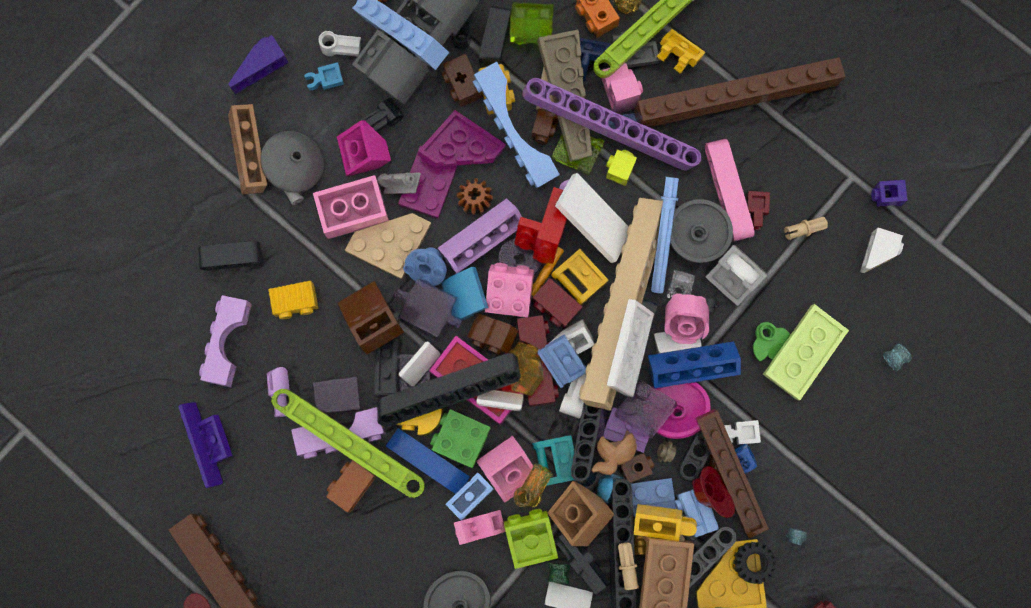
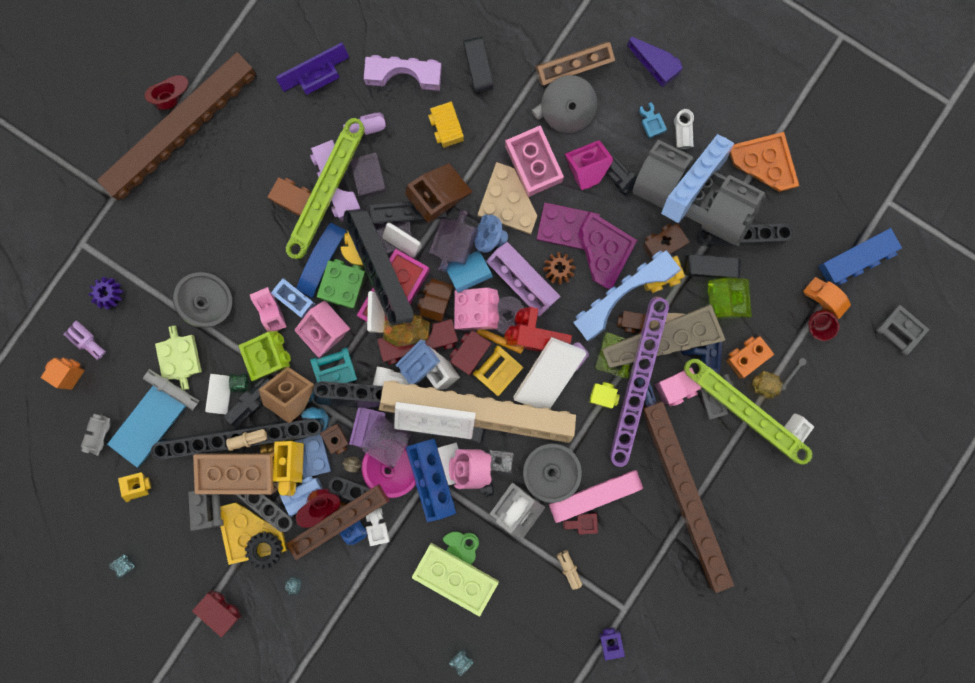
camera: 80 degrees right, 5 degrees up
(399, 183) = (562, 200): light grey hinge -> none
(533, 486) = (306, 351): clear yellow piece -> none
(615, 453) = (342, 418): medium nougat hair -> none
(664, 234) = (544, 441): light blue axle -> none
(683, 48) = (725, 438): yellow plate -> none
(881, 249) = (558, 640): white slope -> none

